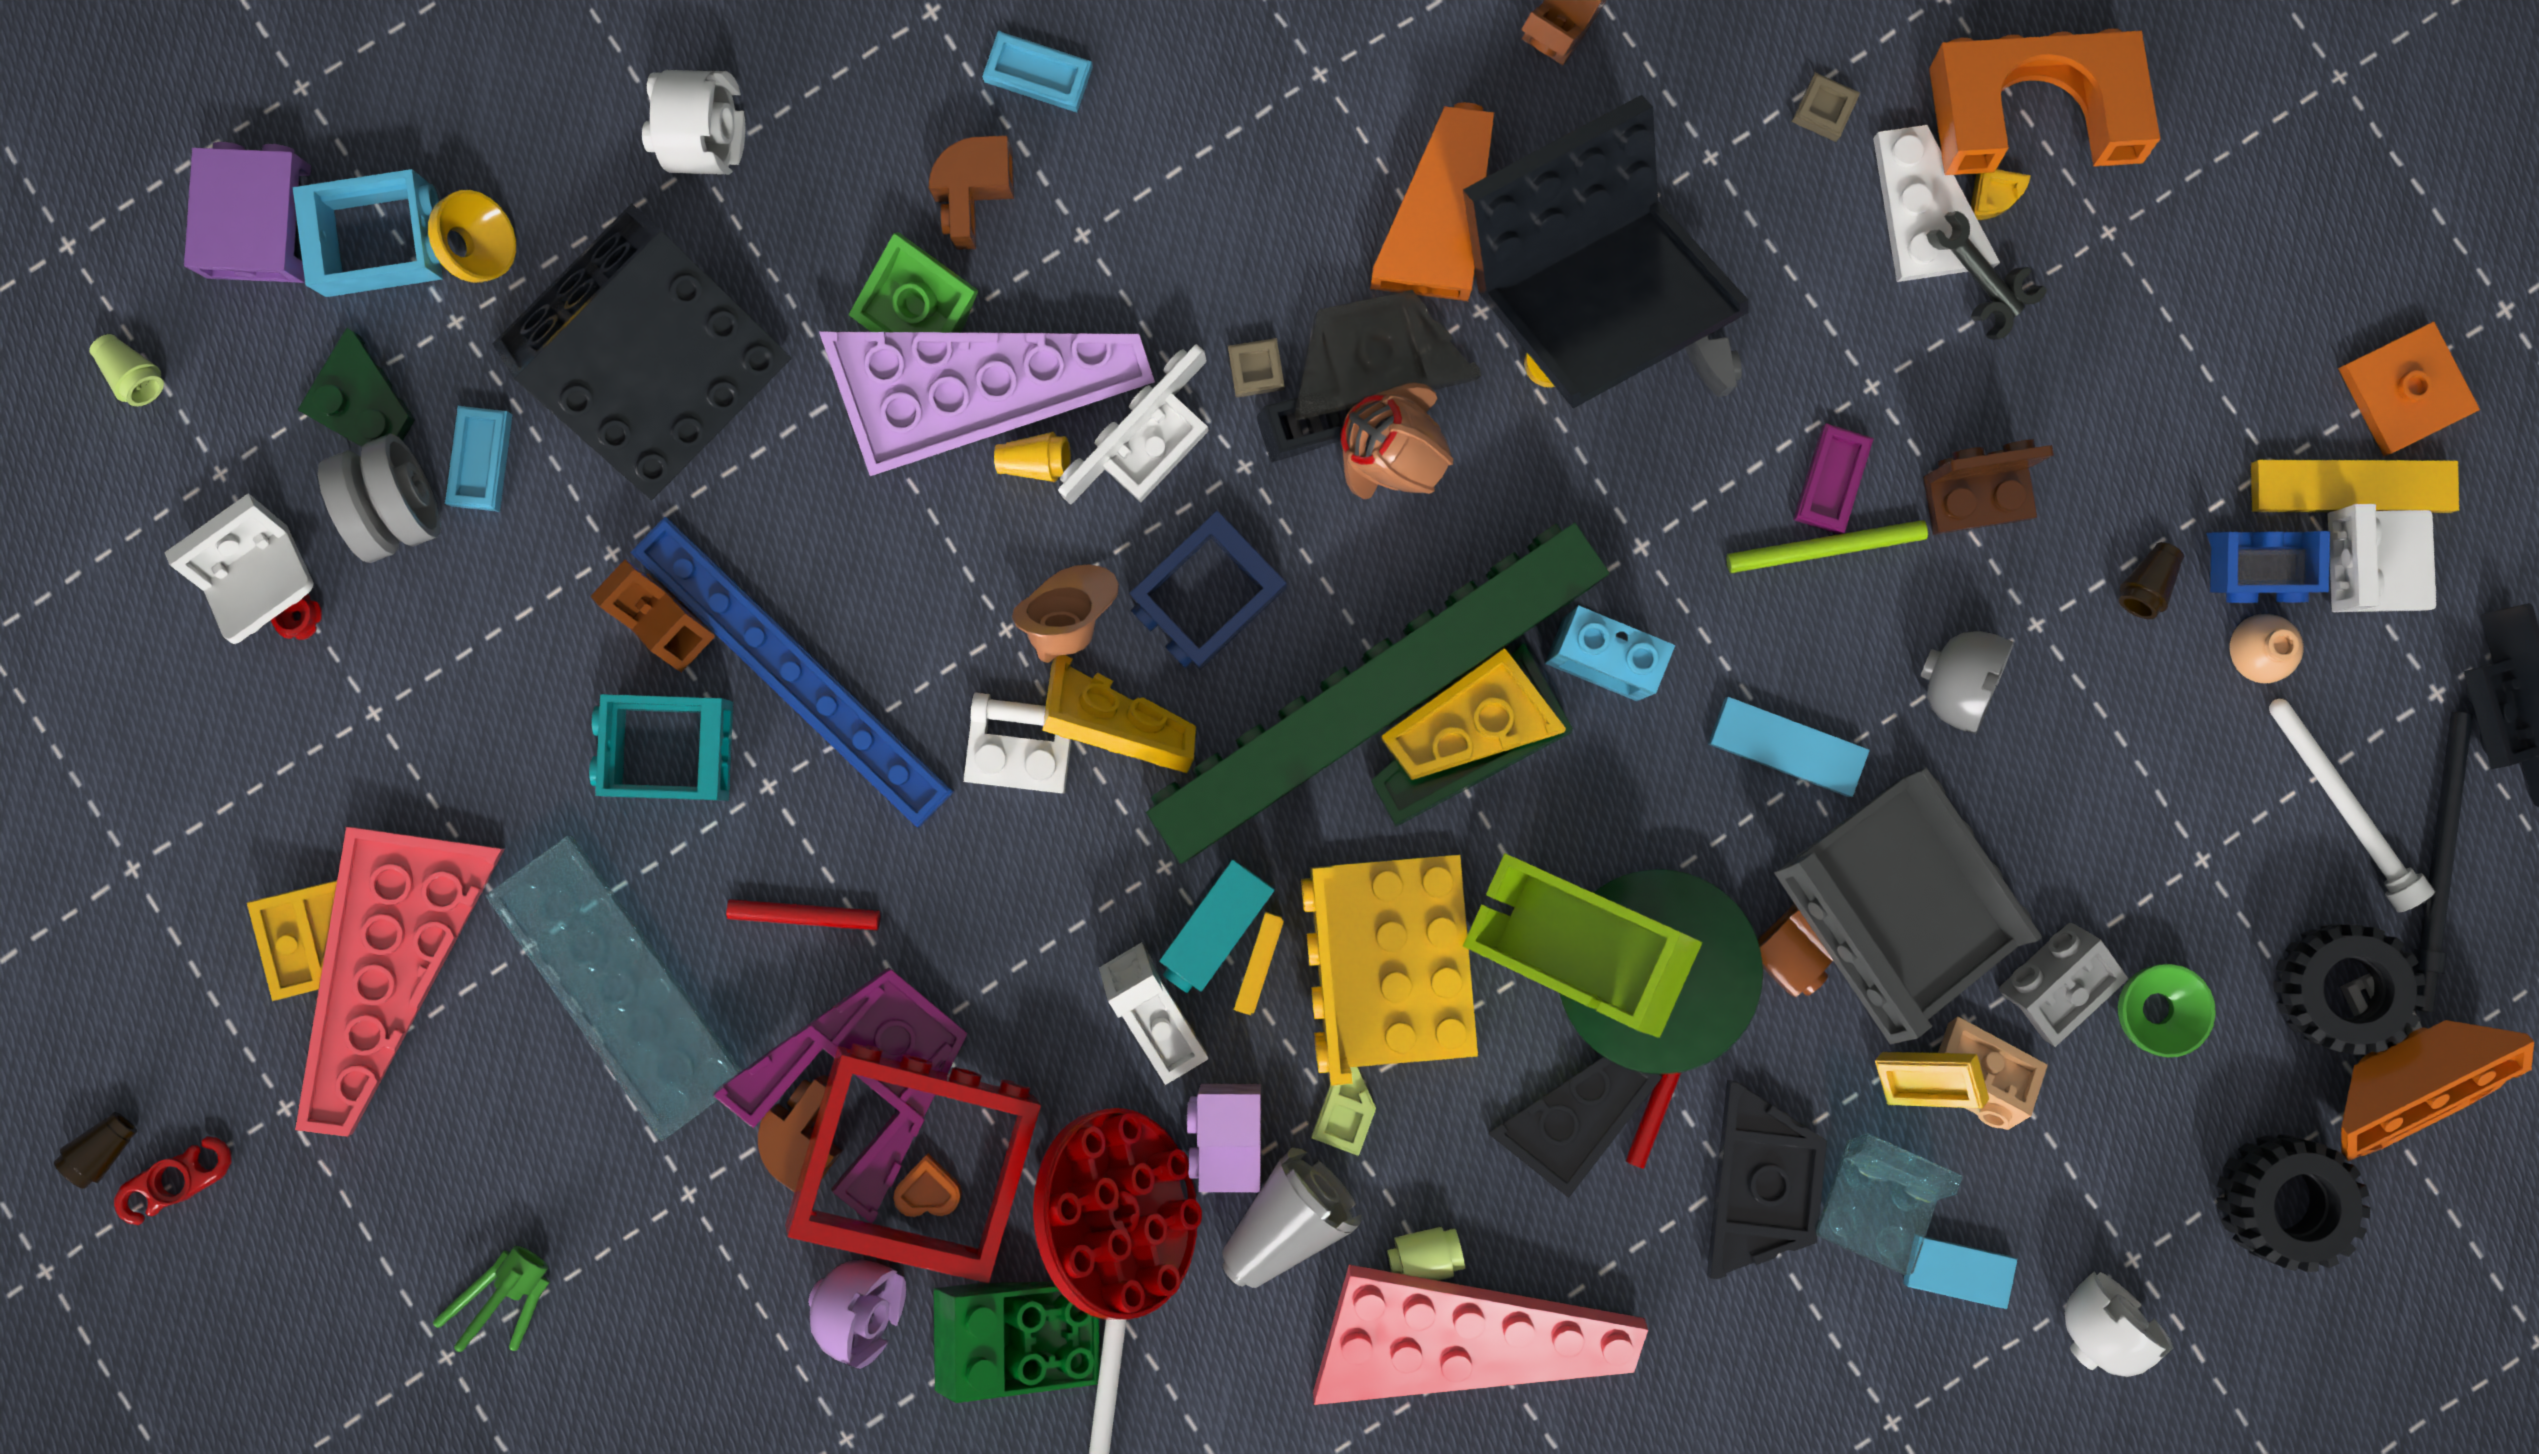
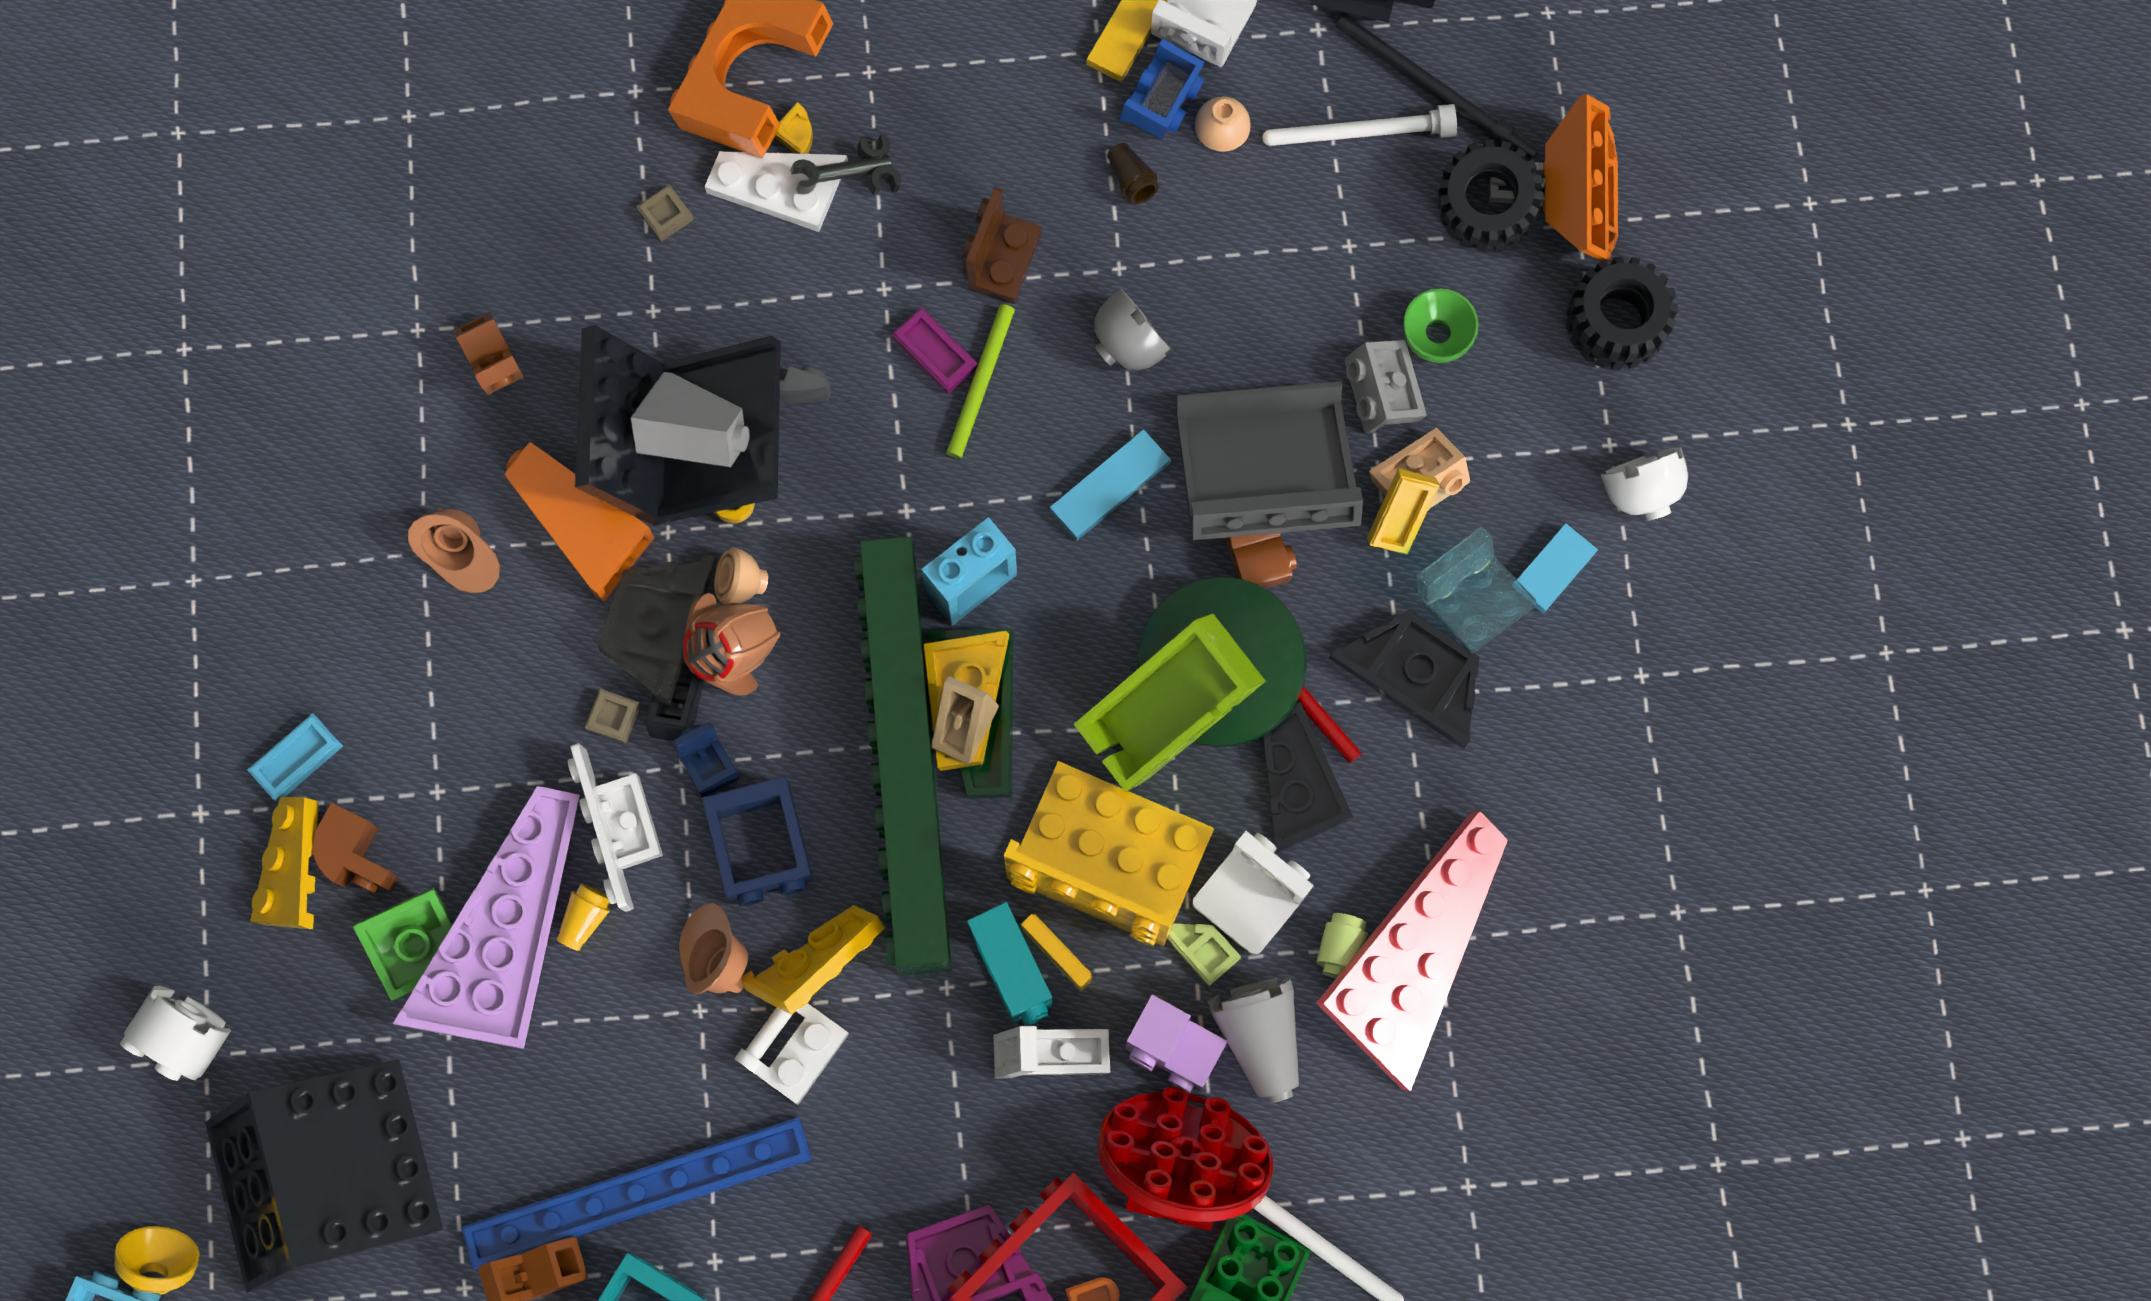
camera: 65 degrees left, 10 degrees down
(906, 135) = (284, 875): none -> yellow wing
(1261, 489) = (705, 759): none -> dark blue bracket
(1339, 100) = (453, 548): none -> nougat piece
(1431, 1133) = (1253, 893): none -> white bracket
(1441, 736) = (962, 720): none -> tan slope
(1470, 413) = (738, 577): none -> light nougat brick
(1601, 268) = (689, 424): none -> light grey slope

